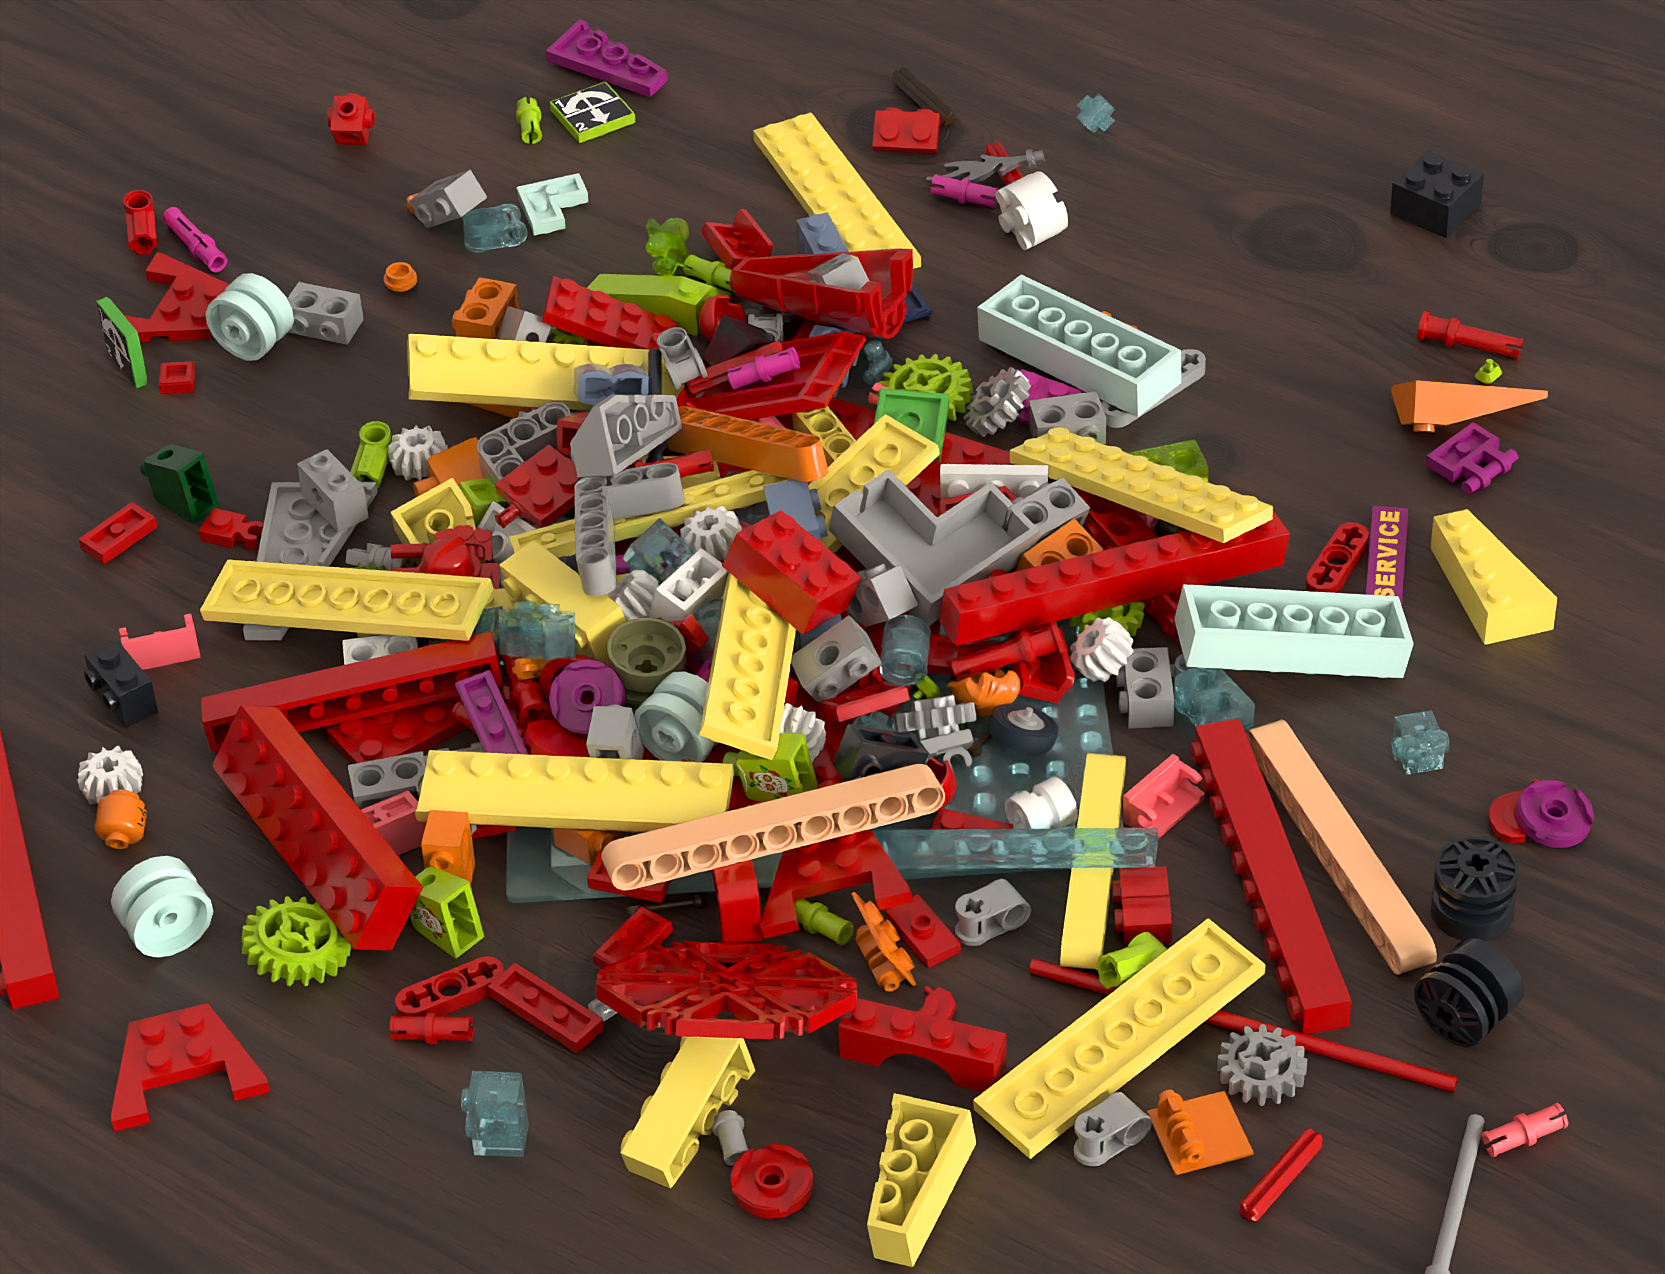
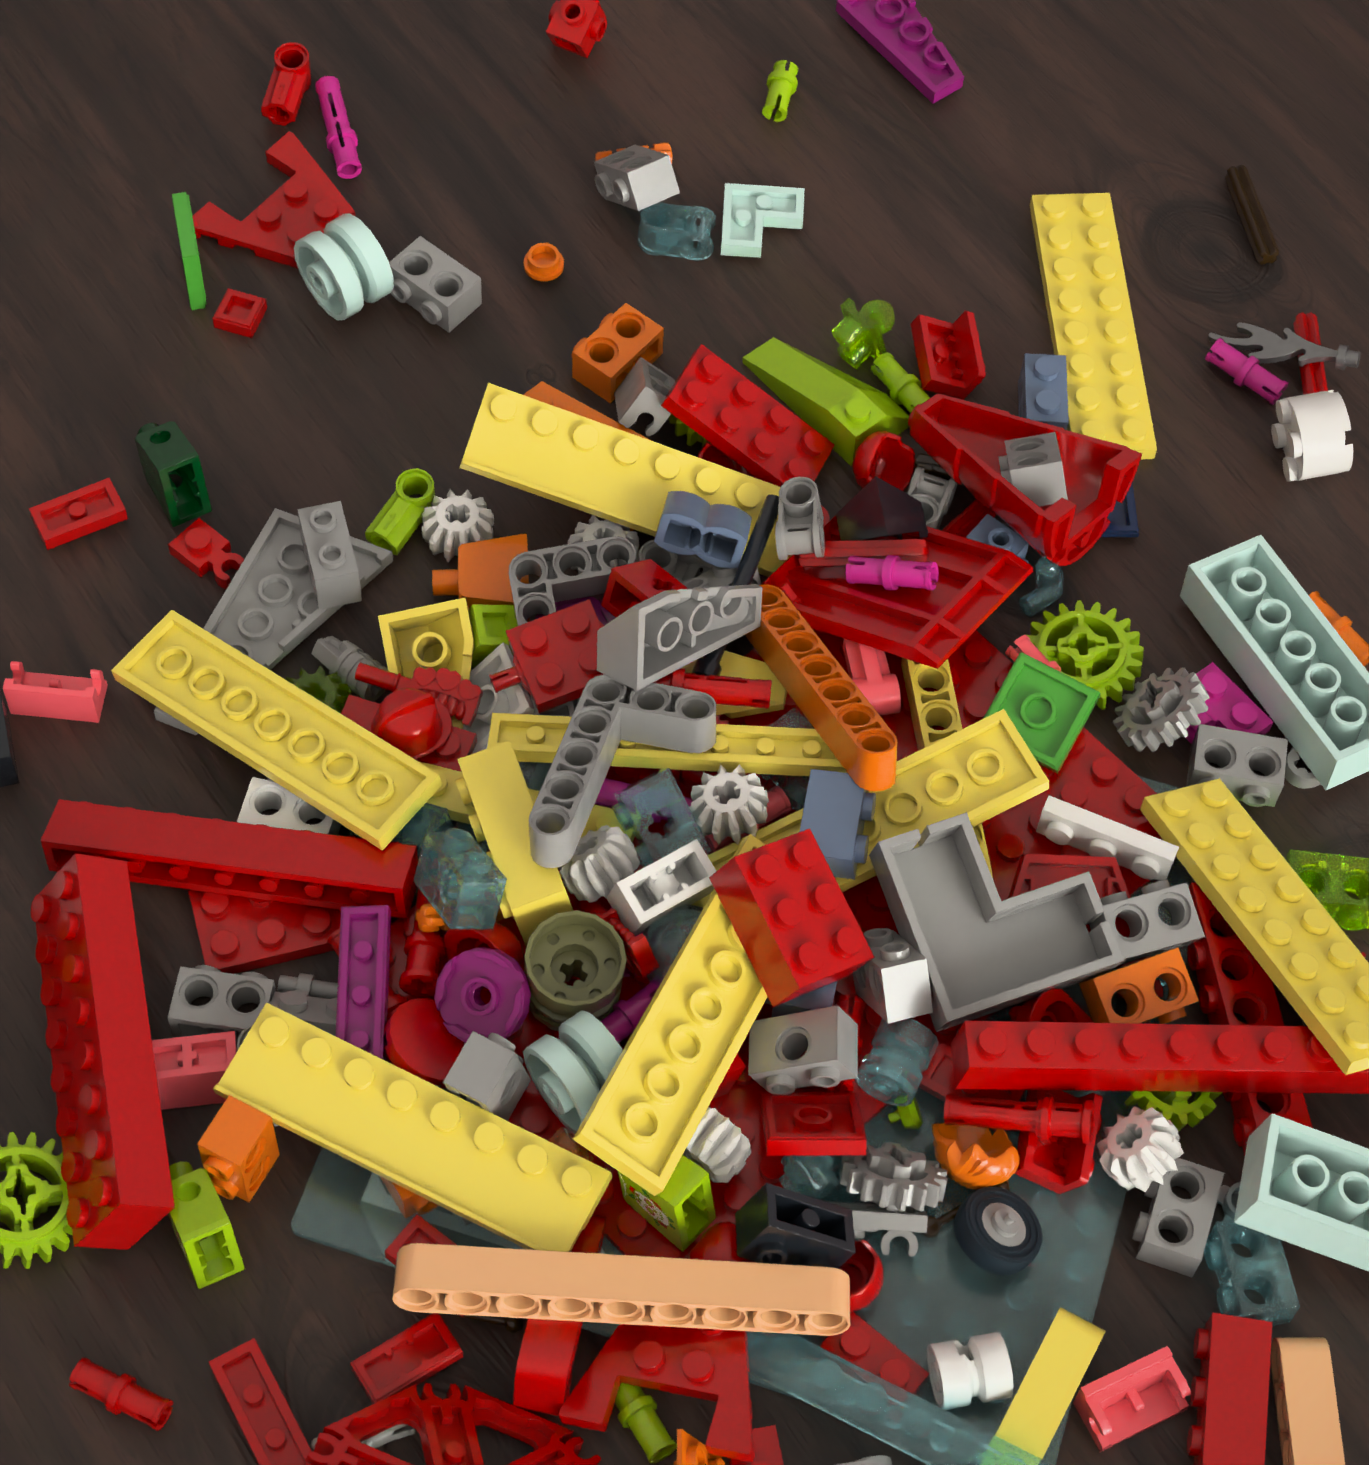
camera: 15 degrees right, 15 degrees up
(473, 971) = (131, 1357): red beam -> none
(592, 112) = (858, 102): tile -> none
(906, 131) = (1210, 259): red bracket -> none

